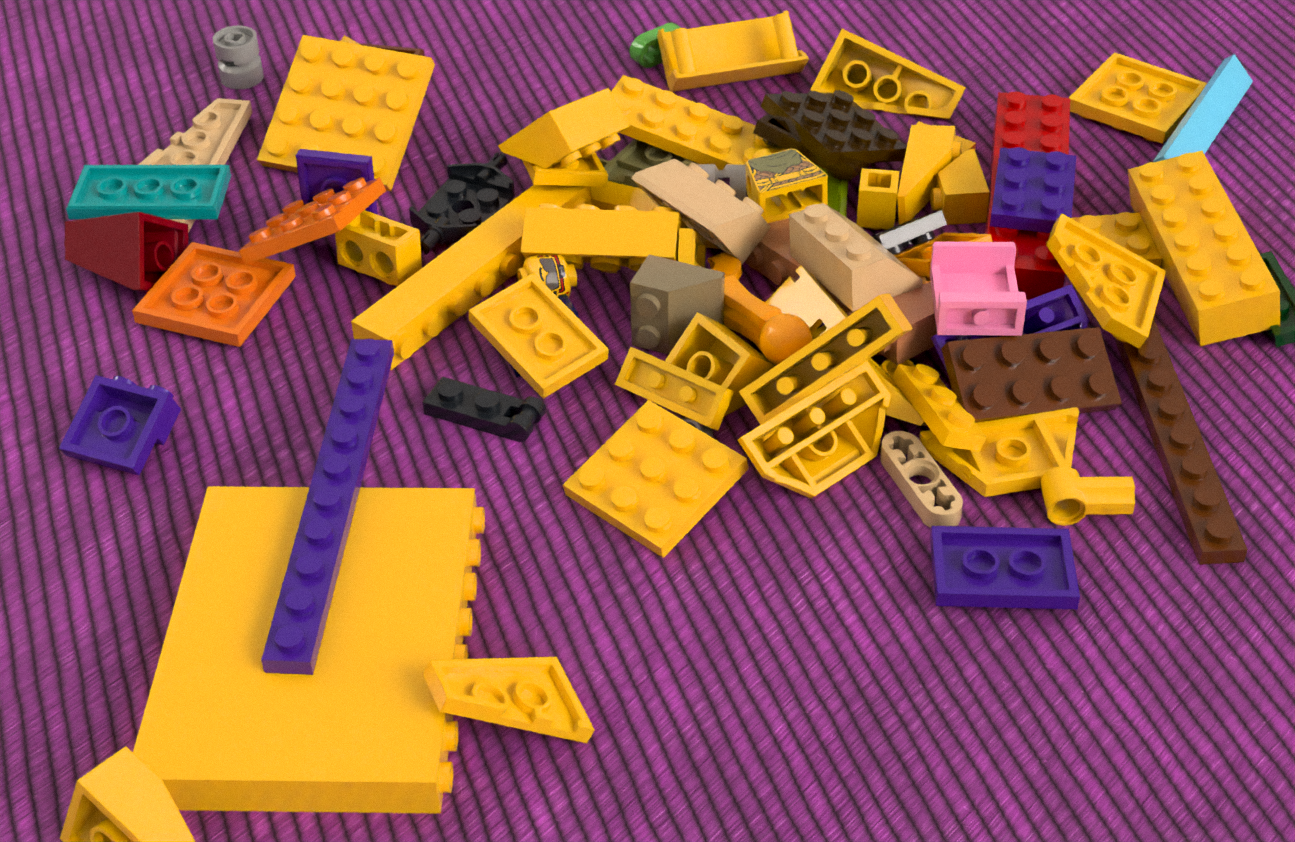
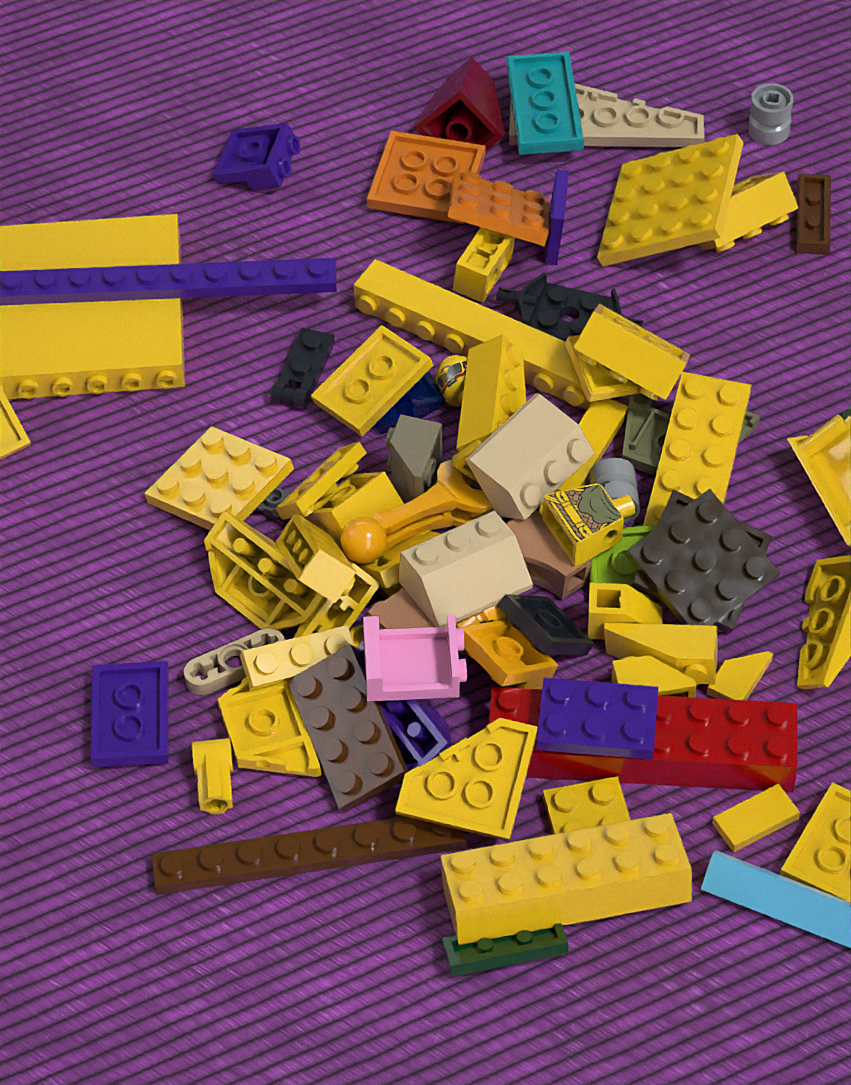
camera: 85 degrees right, 10 degrees up
(1101, 150) = (756, 818): none -> yellow tile

